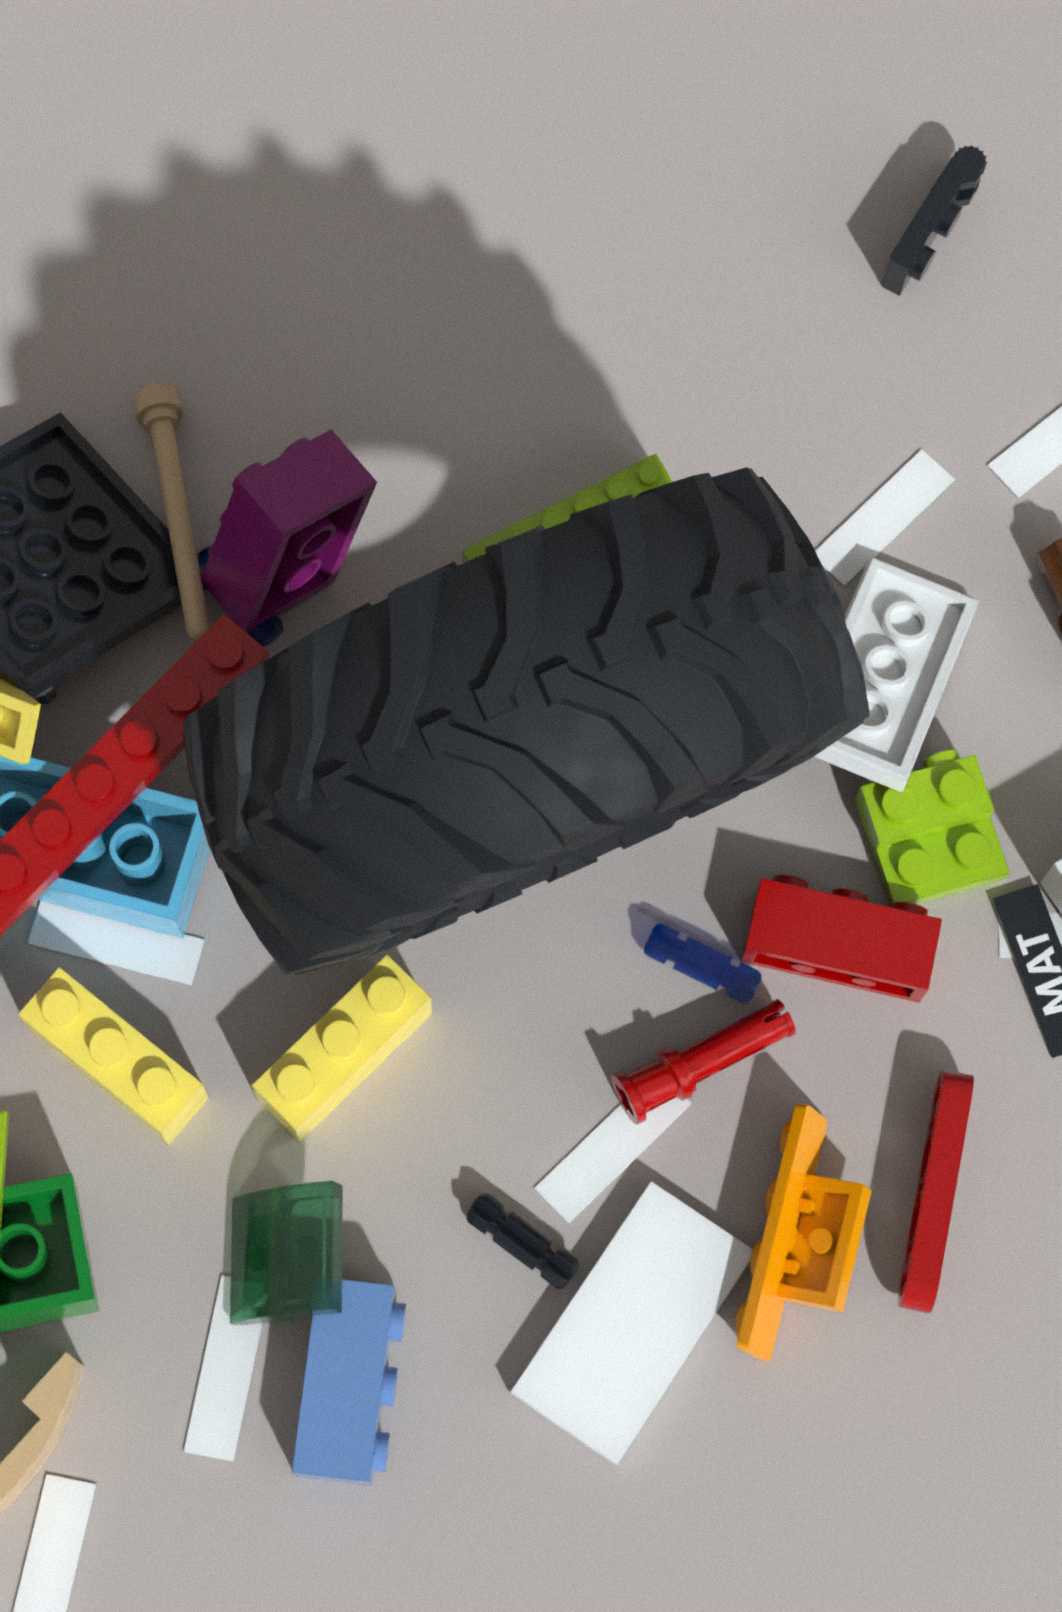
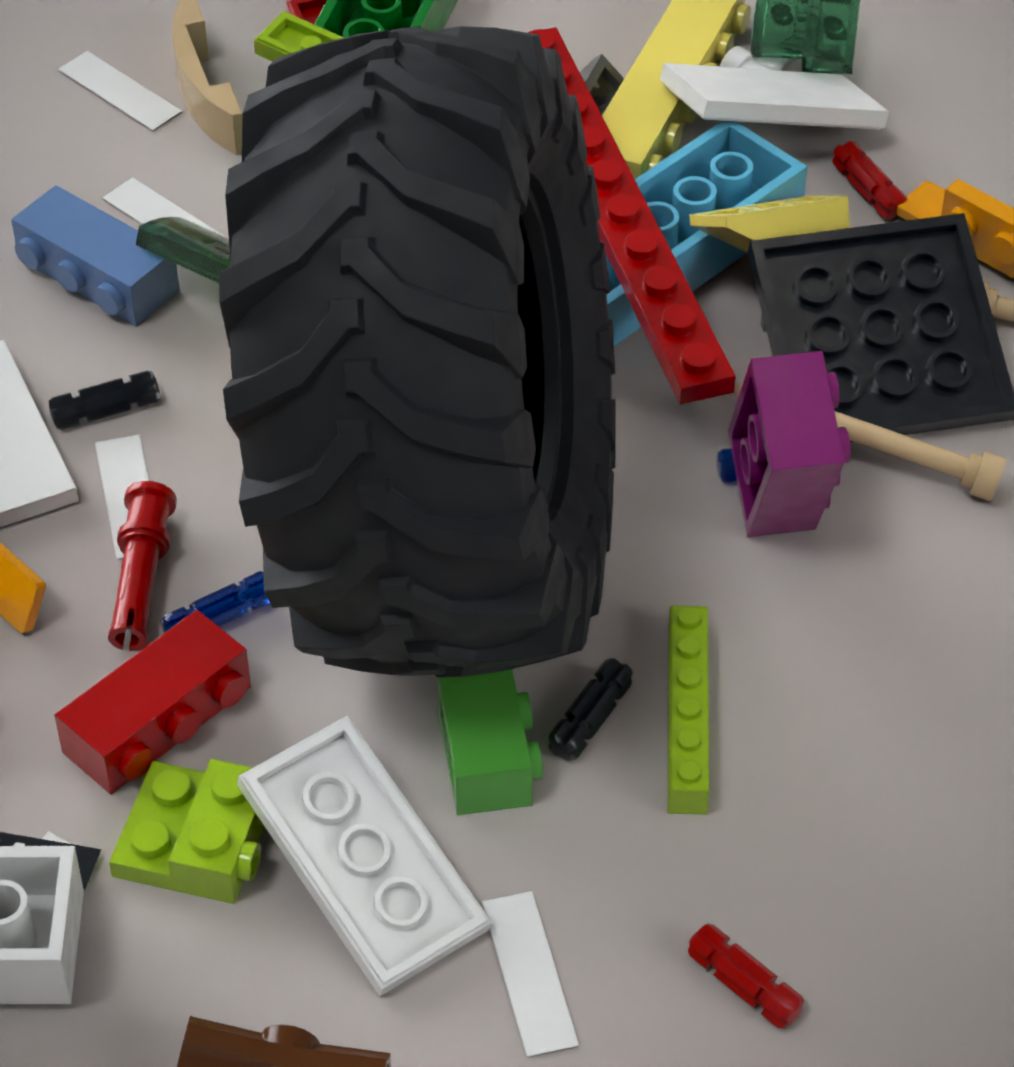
camera: 125 degrees right, 25 degrees down
(794, 358) = (746, 976): none -> red axle

